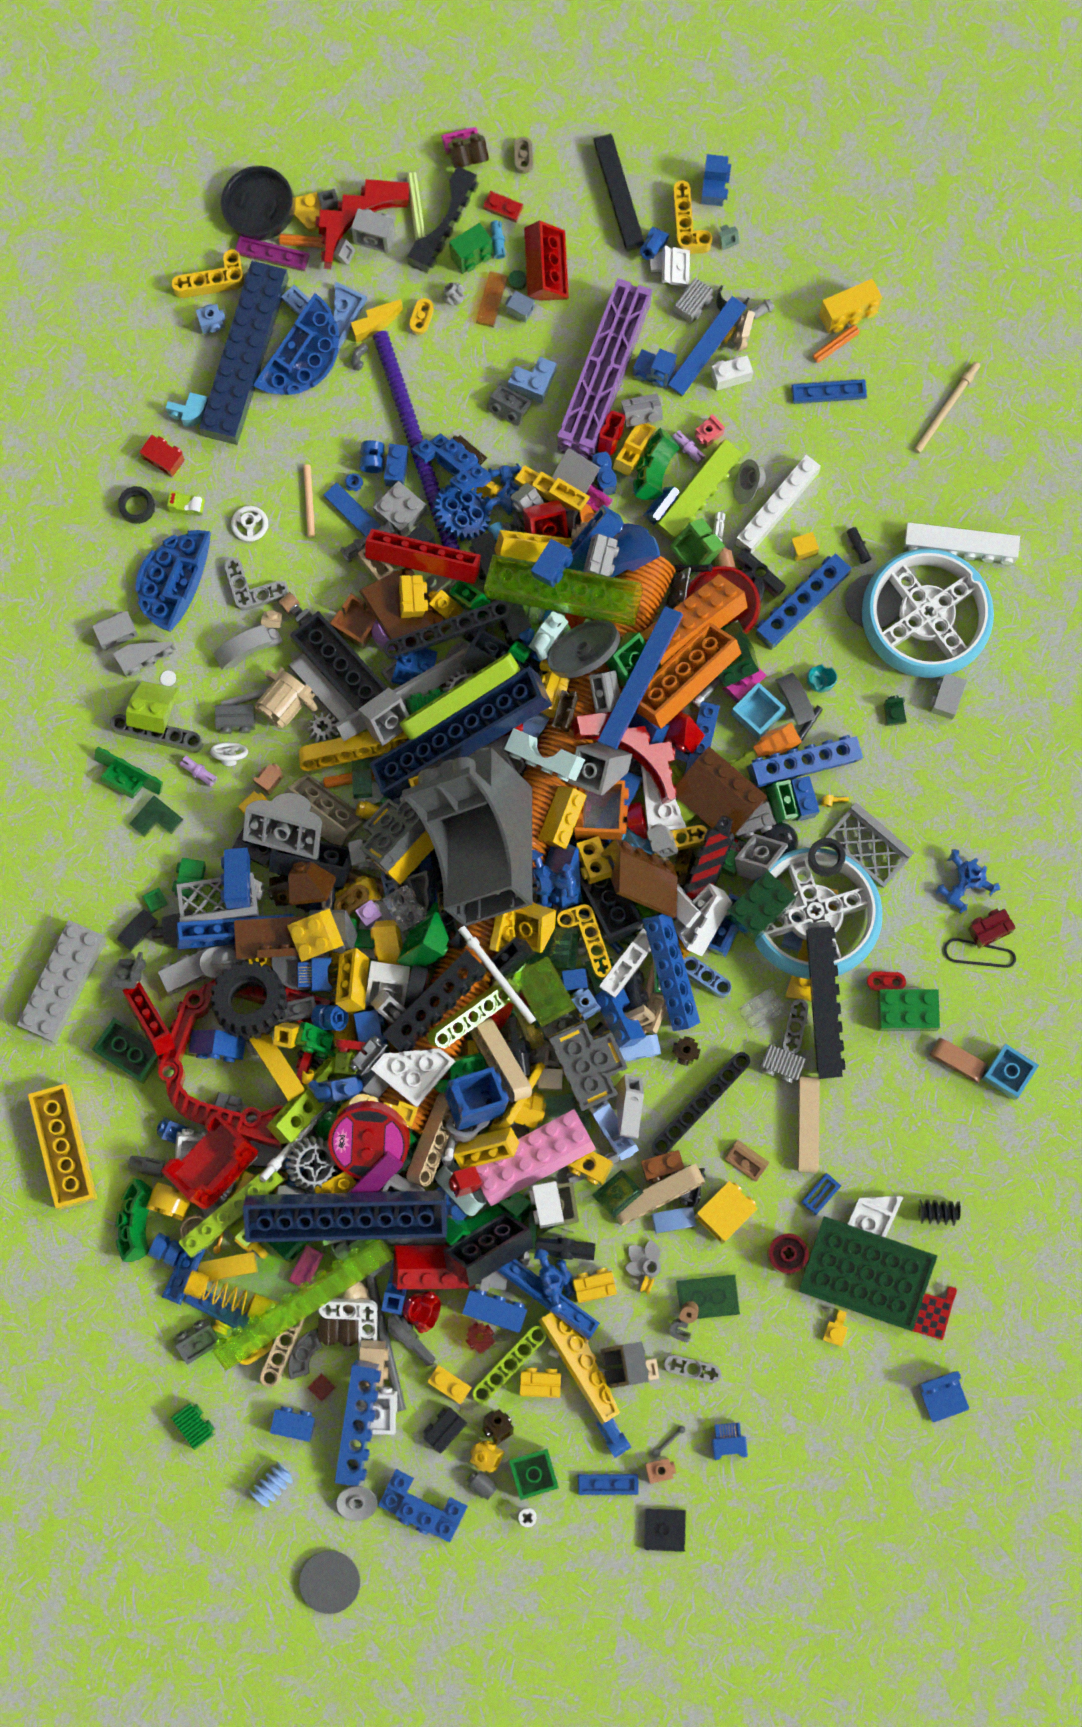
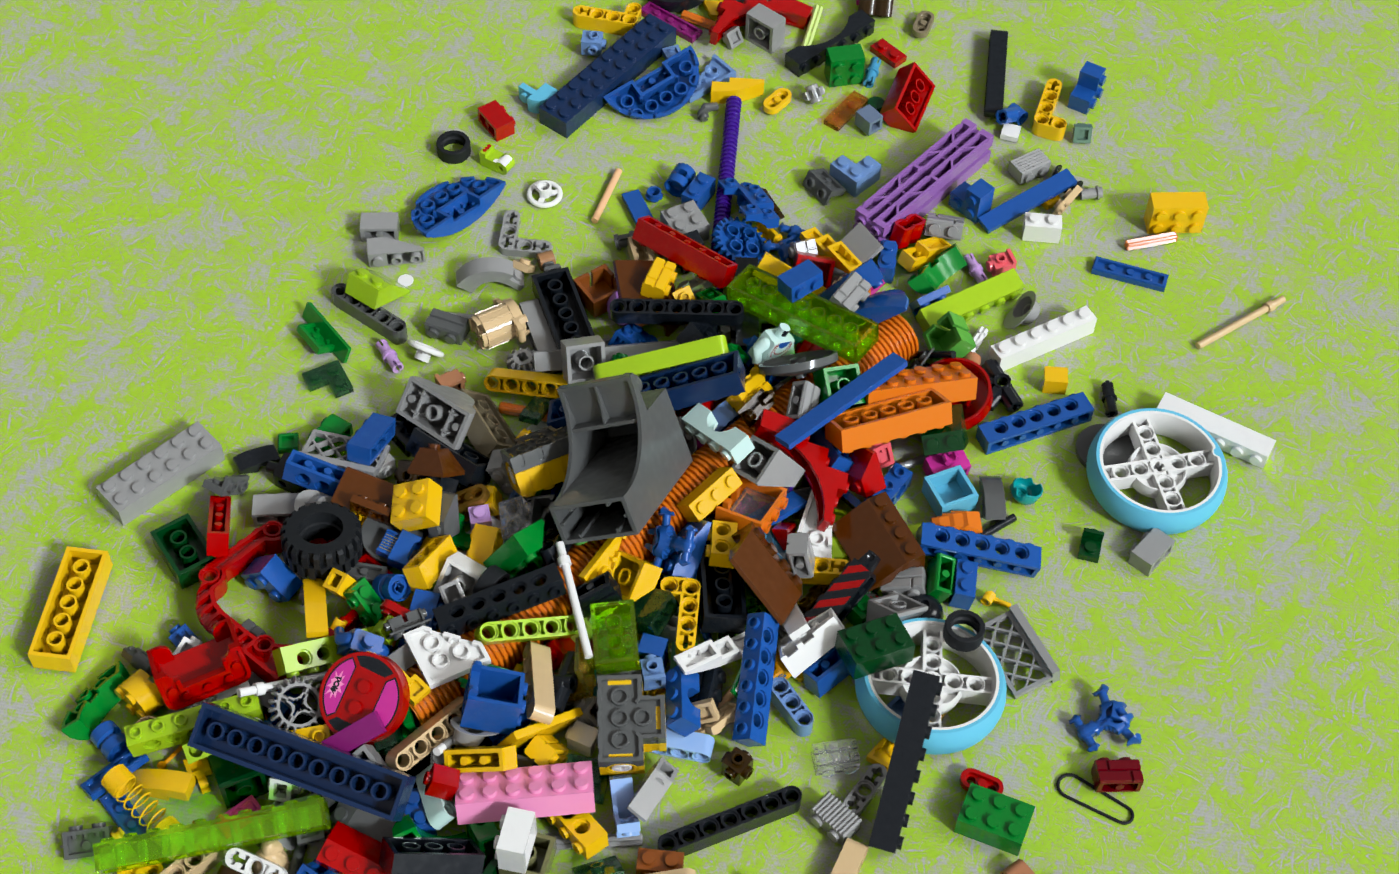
camera: 20 degrees right, 25 degrees down
(675, 266) = (1024, 137): white plate -> none

